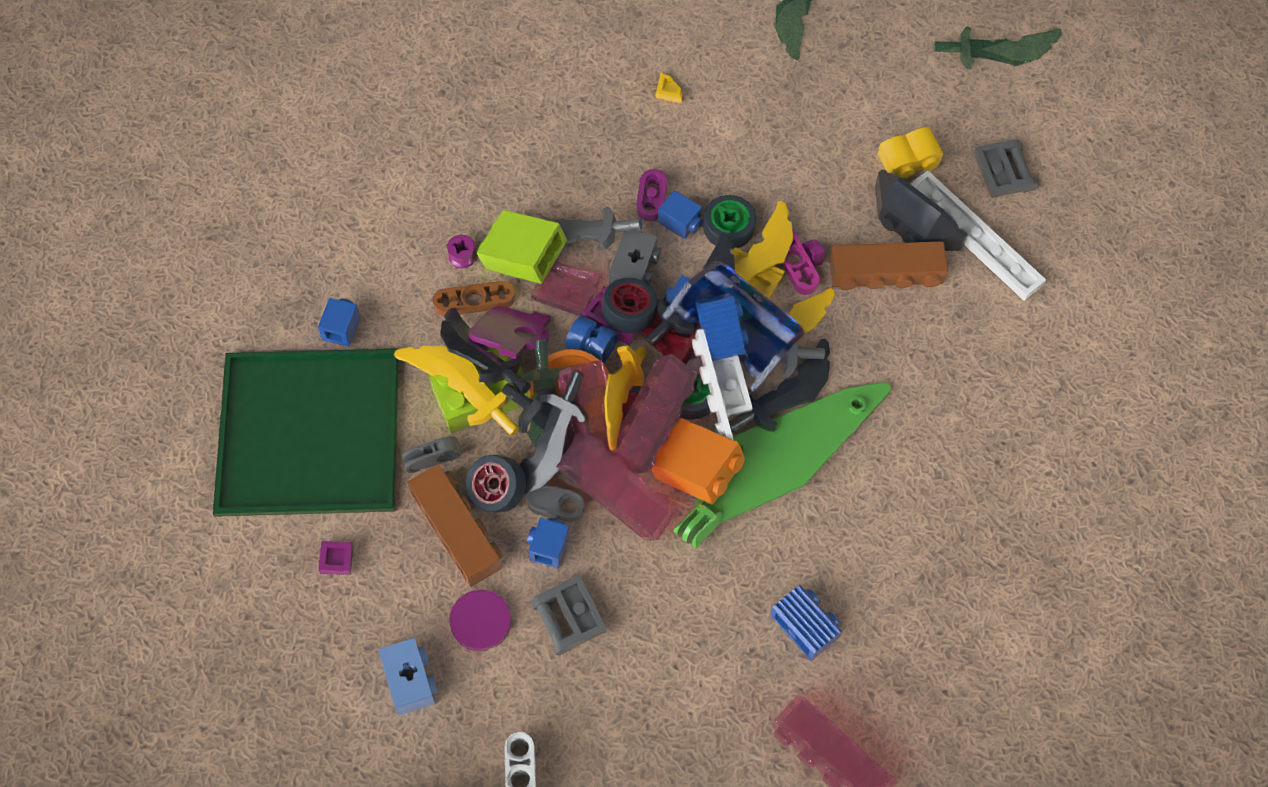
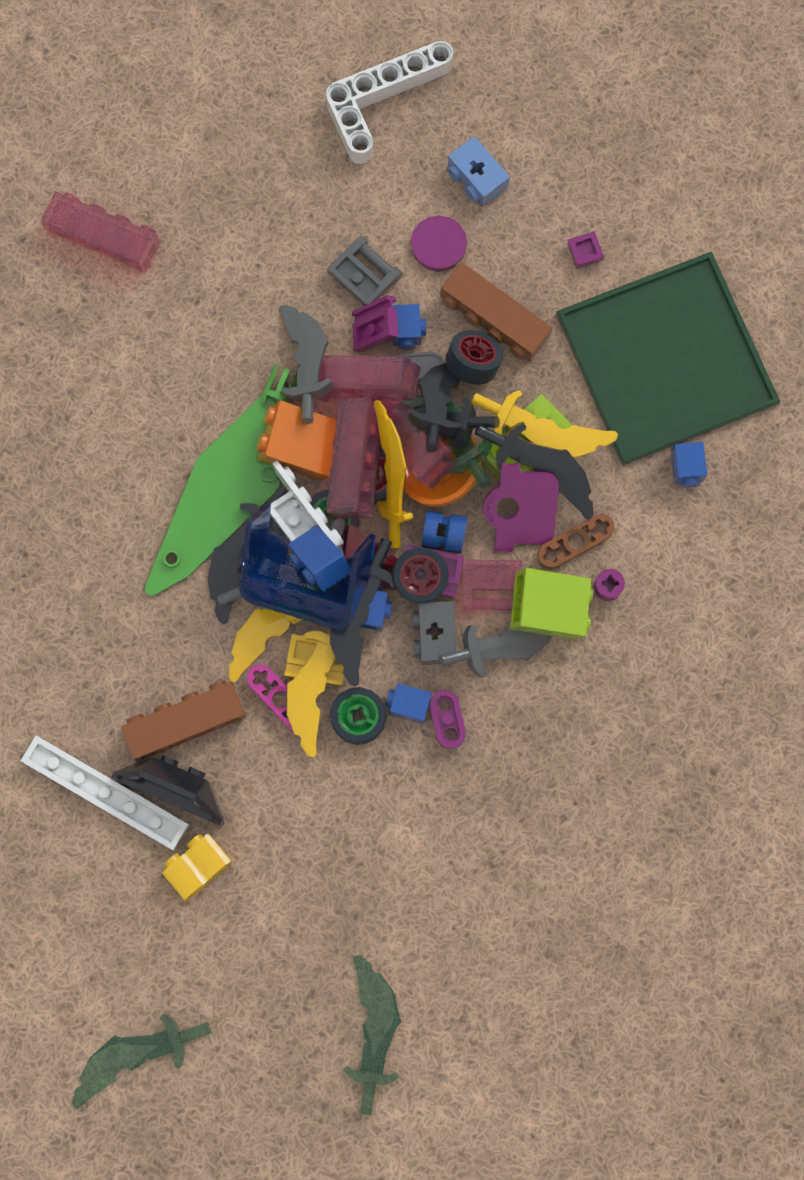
camera: 160 degrees right, 15 degrees up
(431, 454) = (544, 369): dark grey piece -> none
(581, 547) = (374, 324): none -> magenta plate
(659, 537) = (309, 356): none -> dark grey sword
(668, 89) = (479, 862): yellow tile -> none
(806, 621) = (156, 334): blue brick -> none
(815, 252) = (264, 713): magenta tile -> none
(998, 171) = (100, 882): dark grey plate -> none

